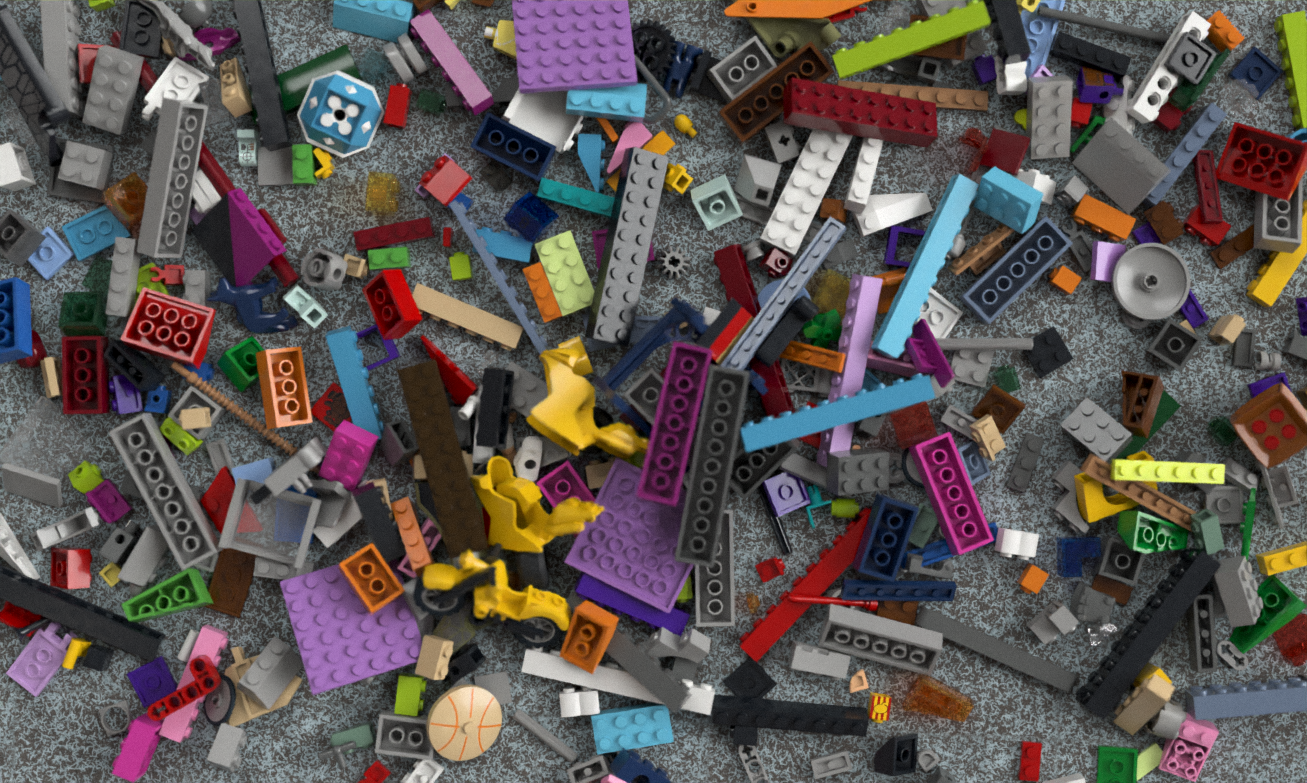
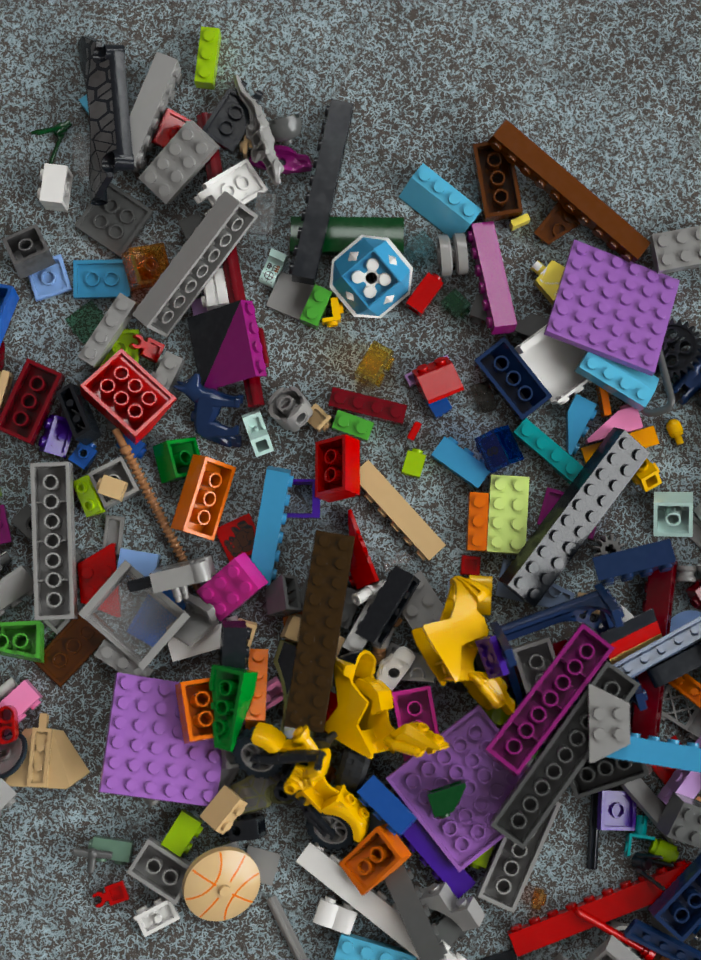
camera: 25 degrees right, 5 degrees down
(83, 314) = (56, 347): clear green brick -> none
(85, 165) = (122, 216): light grey brick -> none
(234, 88) = (286, 210): tan slope -> none
(270, 673) = (66, 753): light grey slope -> none
(392, 556) = (231, 695): none -> green wedge
(499, 276) = (446, 489): sand blue plate -> none
(555, 335) = (470, 565): none -> red tile
(576, 586) = (386, 806): none -> blue brick
(598, 472) = (452, 710): tan brick -> none
(606, 410) = (492, 656): none -> dark purple bracket
(624, 556) = (445, 798): none -> dark green slope
(697, 264) = (633, 562): none -> dark blue brick
(735, 421) = (606, 723): none -> light grey wing
(770, 568) = (569, 875): red bracket -> none
(831, 526) = (644, 862): none -> black plant

